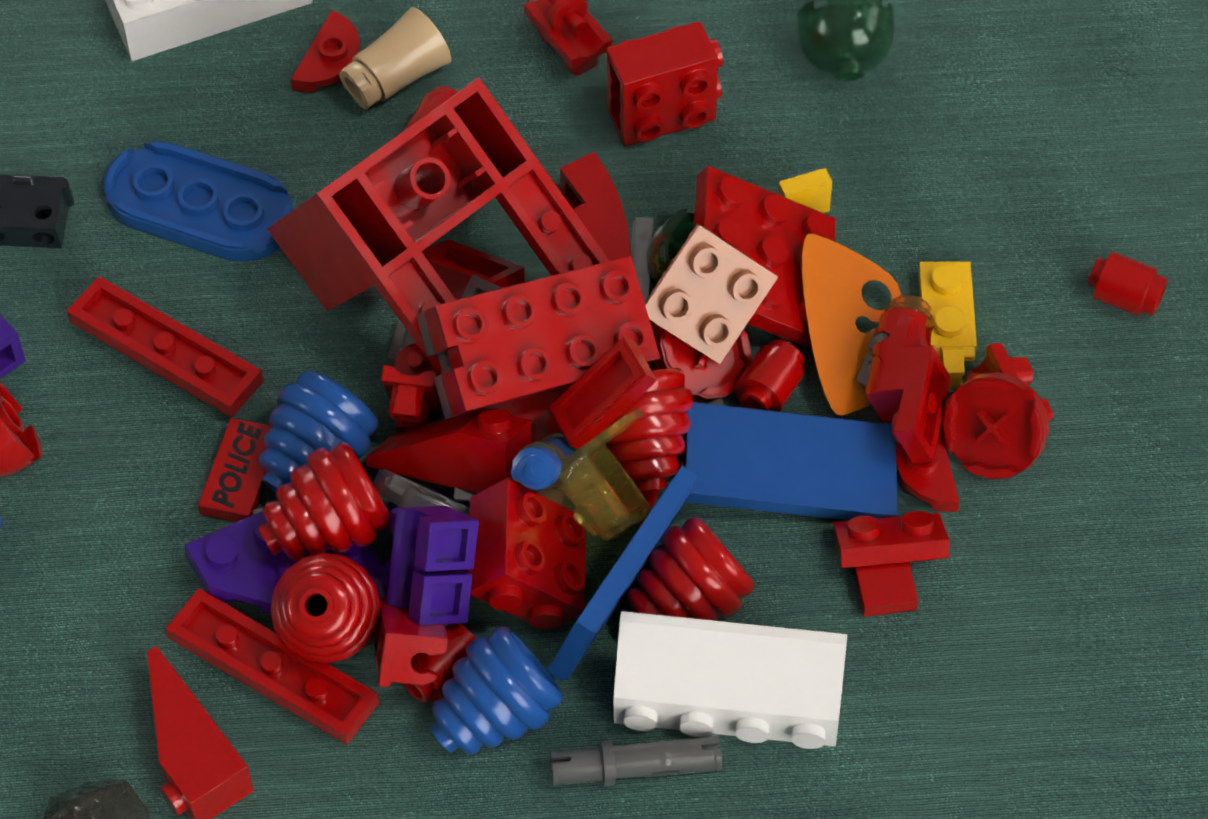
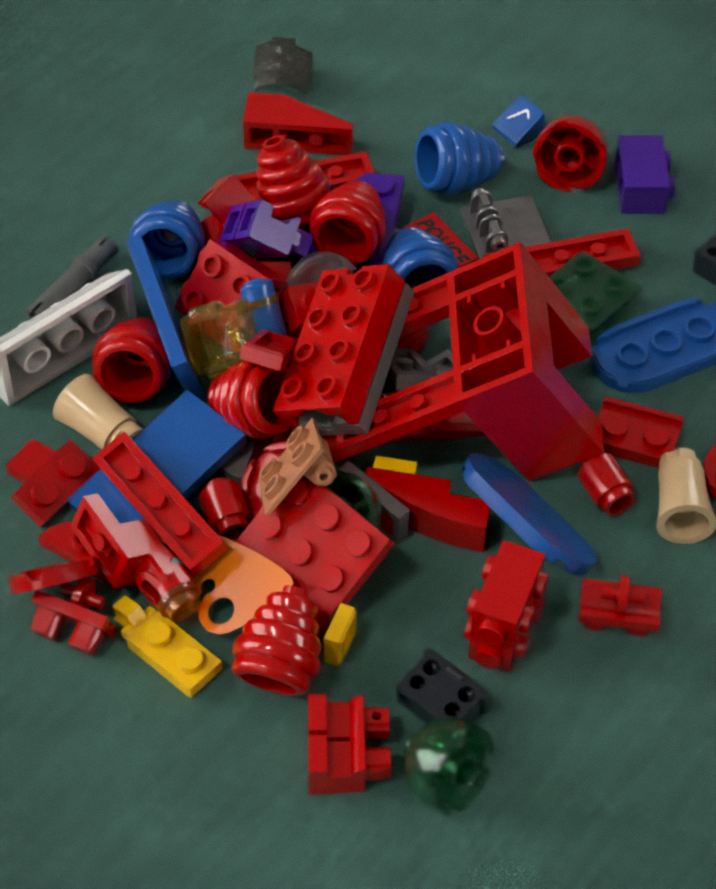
camera: 130 degrees right, 5 degrees down
(108, 522) = (455, 158): none -> blue piece
(157, 431) = (502, 222): none -> flat silver hinge
(201, 281) = (594, 289): none -> clear green hinge
(334, 142) = (638, 431): none -> red plate
(550, 120) = (528, 513): none -> blue tile
(781, 93) = (441, 691): none -> black piece
(786, 563) = (93, 412): none -> tan plant
(836, 406) = (160, 504): none -> red plate
(876, 202) = (280, 644): none -> red piece
(899, 124) = (337, 745): none -> red hips
(1127, 284) = (69, 761): red brick -> none

